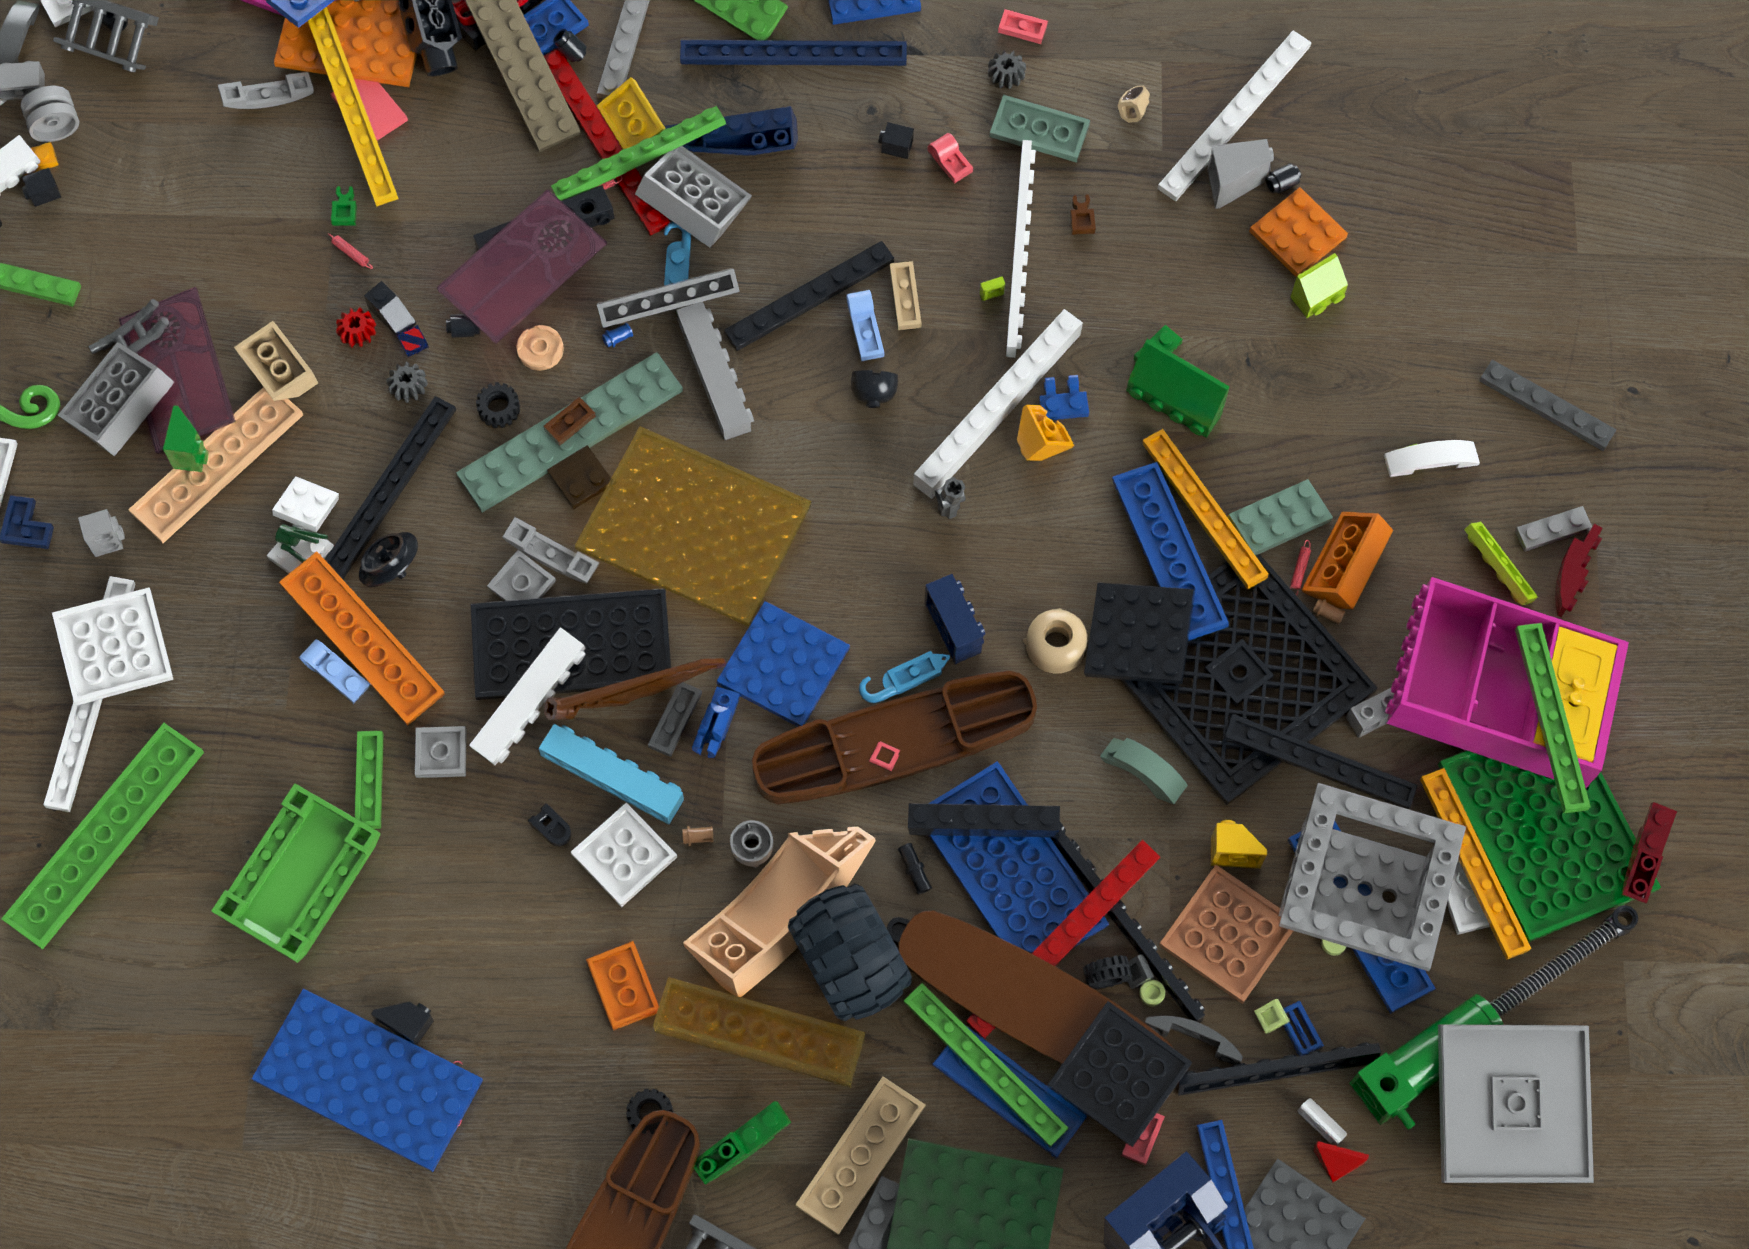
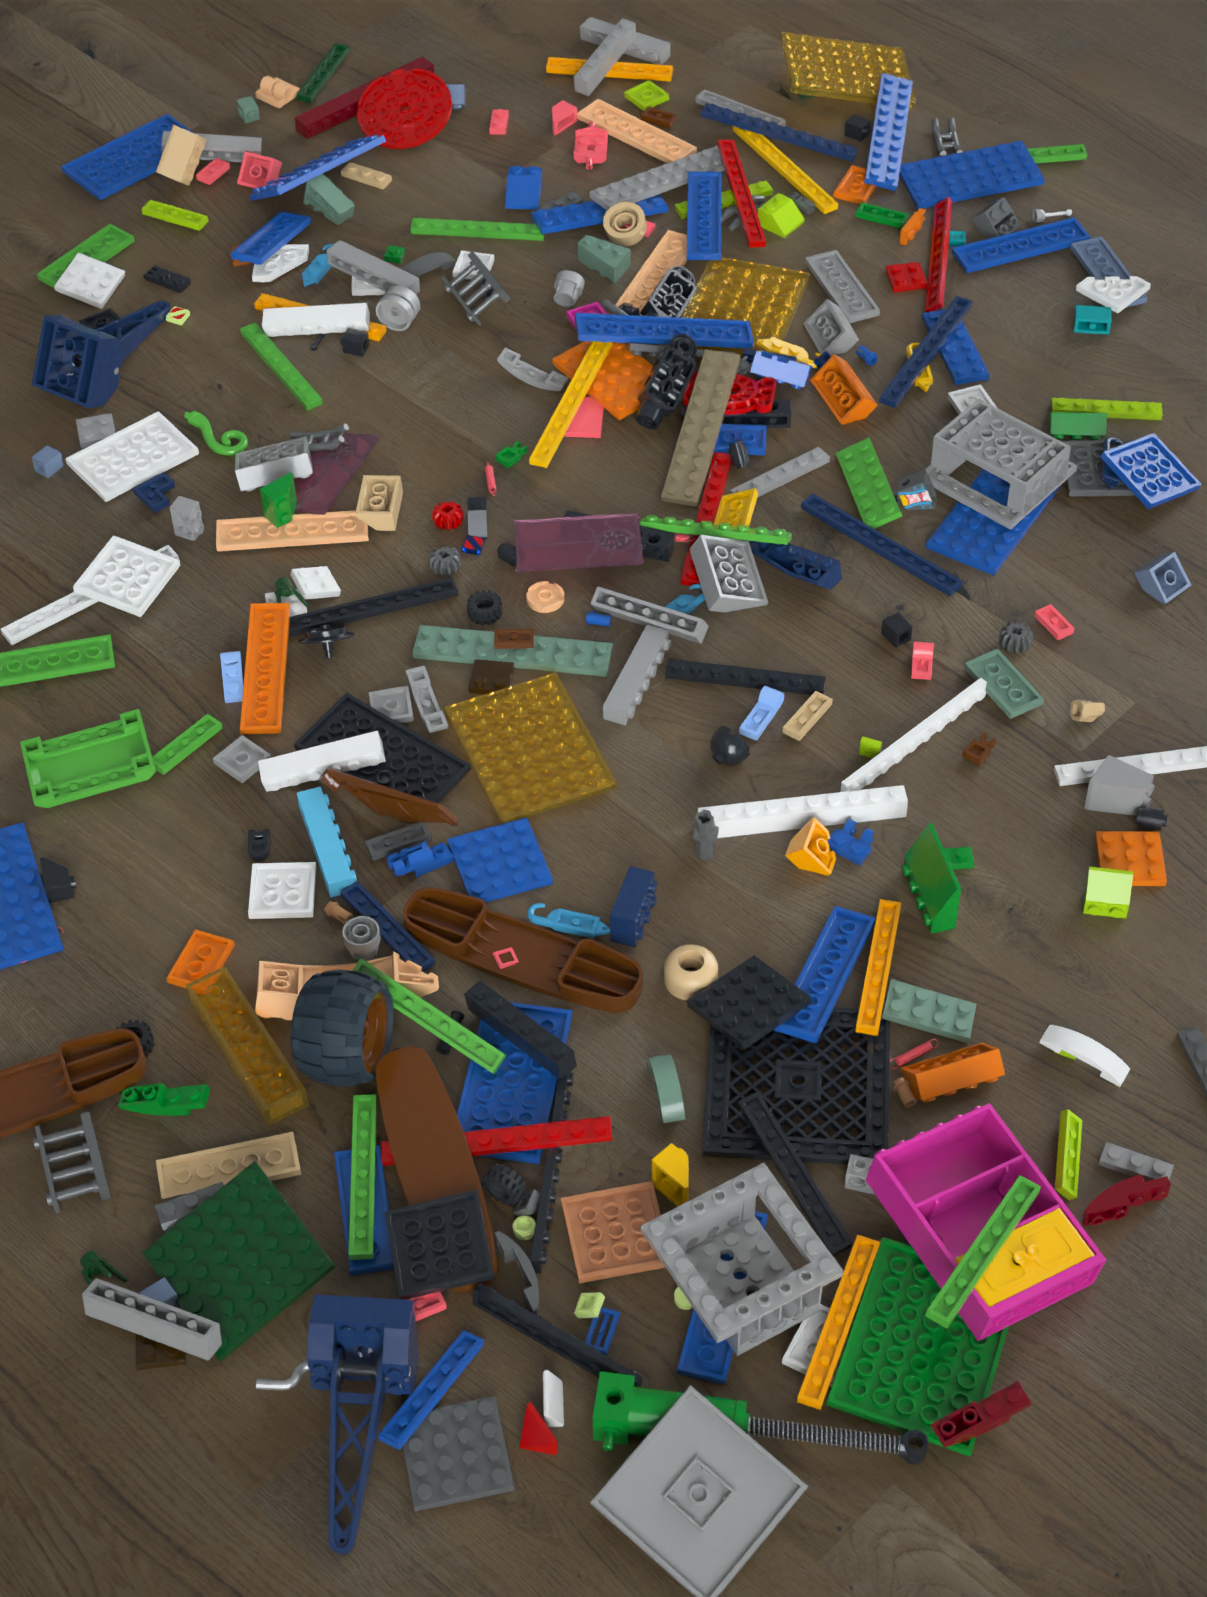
camera: 45 degrees right, 20 degrees down
(738, 810) = (390, 930): none -> dark blue plate
(899, 874) = (437, 1021): none -> bright green plate

